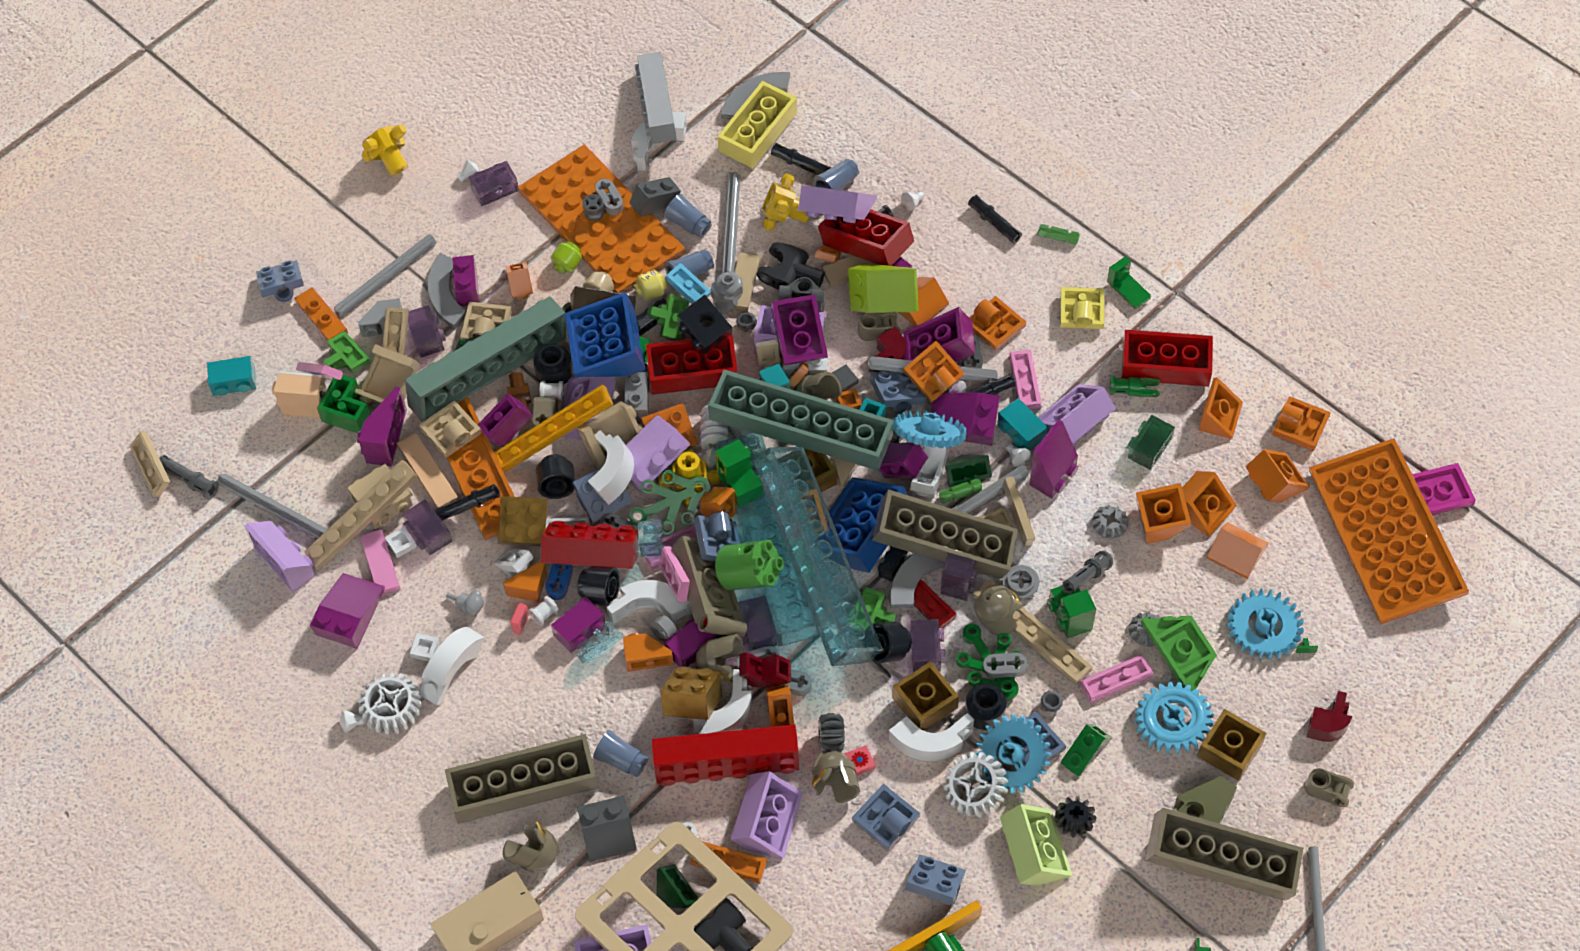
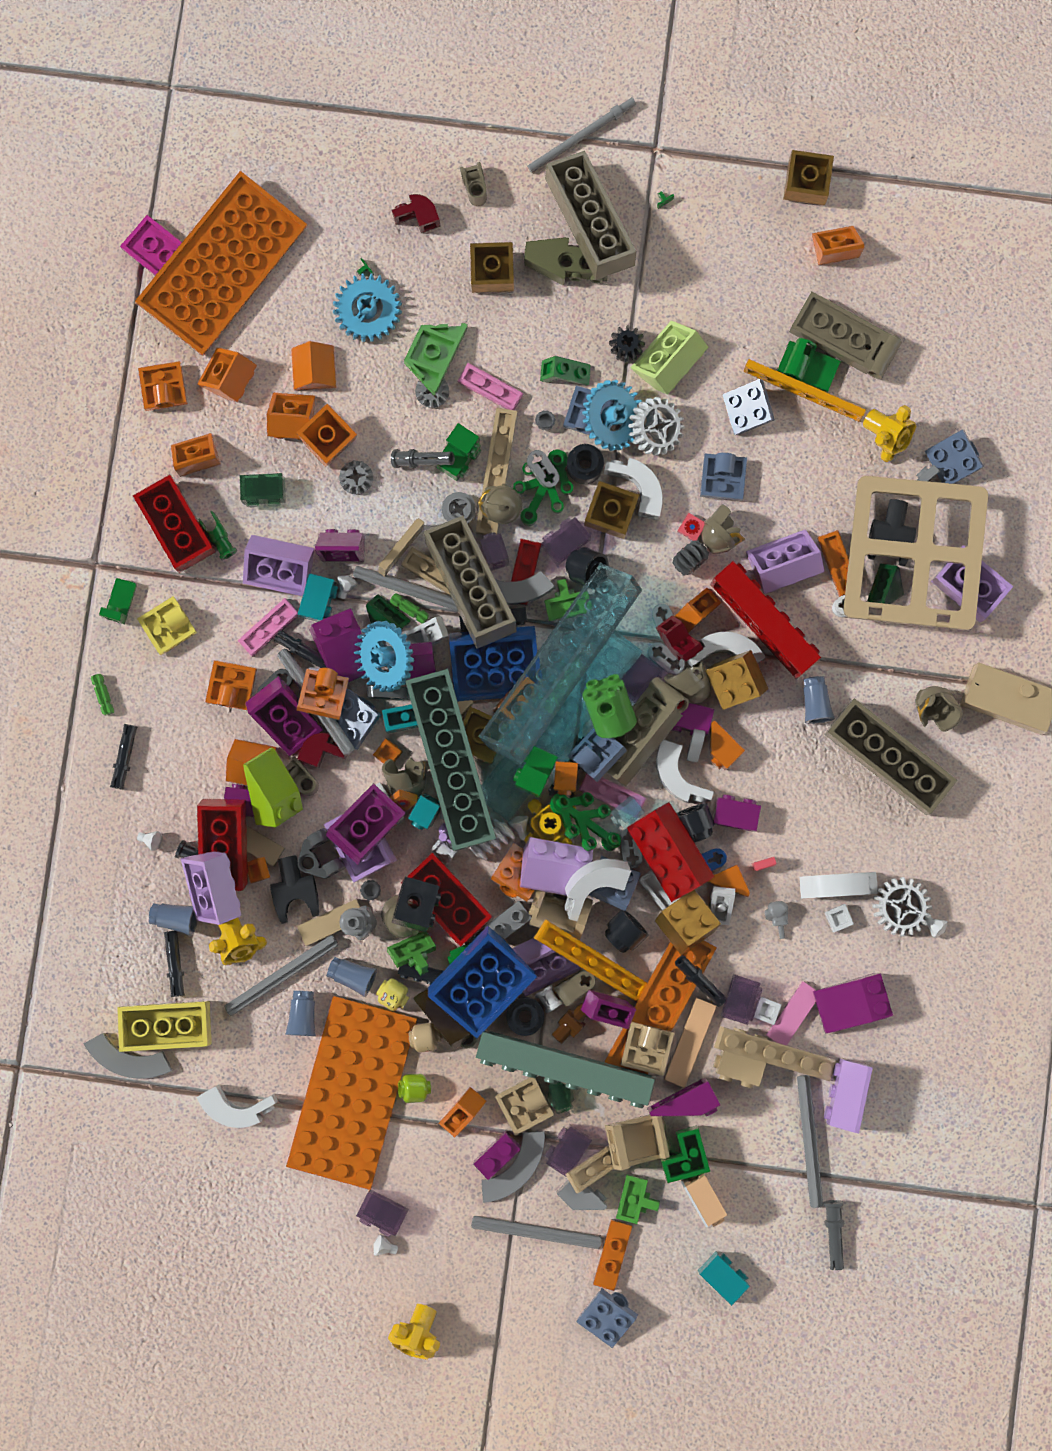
camera: 125 degrees left, 25 degrees up
(150, 464) = (848, 1274): tan tile -> none
(325, 371) = (676, 1198): bright pink tile -> none
(543, 610) = (743, 851): white bush -> none
(593, 202) = (351, 1103): dark grey wheel -> none
(593, 650) = (741, 784): clear light blue plate -> none
(606, 828) = (878, 669): dark grey slope -> none
(612, 195) = (335, 1099): light grey beam -> none
(653, 196) = (304, 1056): dark grey brick -> none
(655, 98) = (200, 1133): light grey brick -> none
(674, 574) = (649, 766): bright pink tile -> none
(687, 284) = (378, 955): medium azure plate -> none
(767, 353) = (396, 842): tan plate -> none
(846, 377) = (369, 772): dark grey tile -> none
(1176, 731) = (491, 341): medium azure gear -> none

